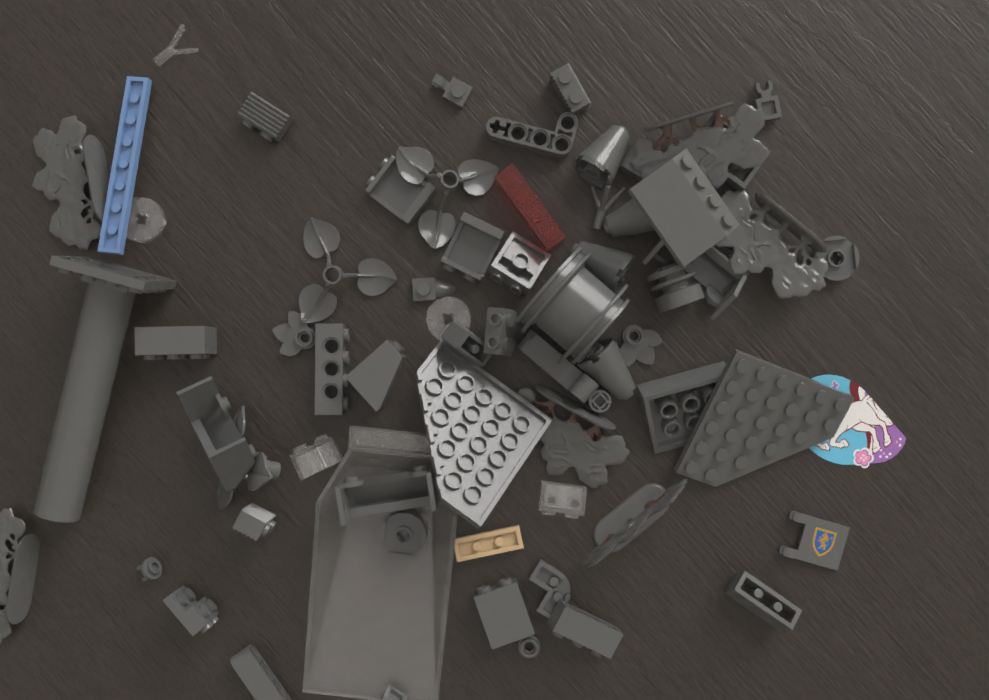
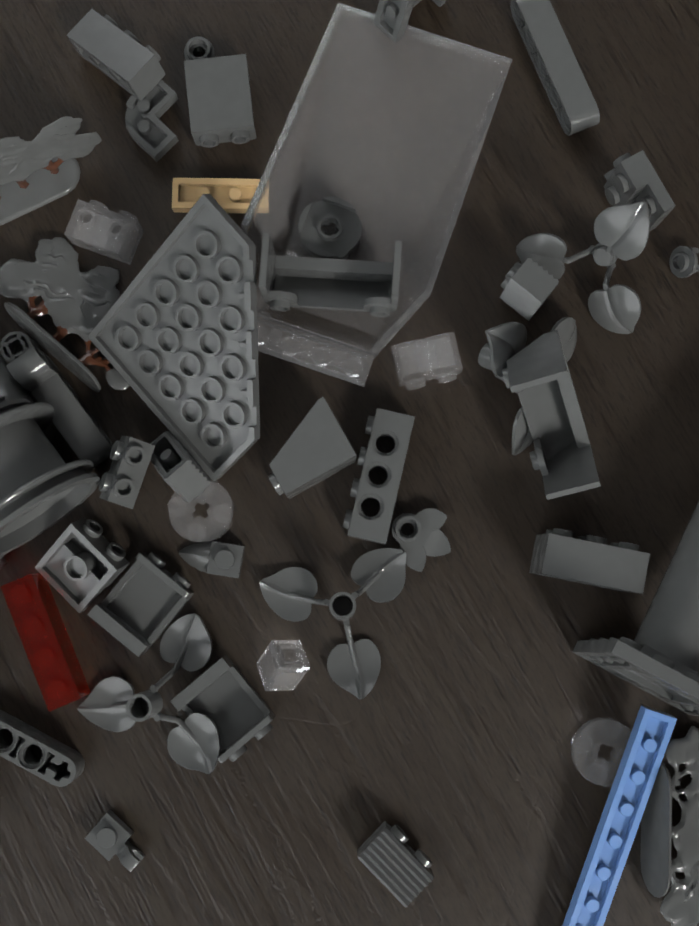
camera: 165 degrees left, 5 degrees down
(199, 569) = (620, 234): none -> dark grey plant
(368, 227) = (283, 665): none -> clear panel

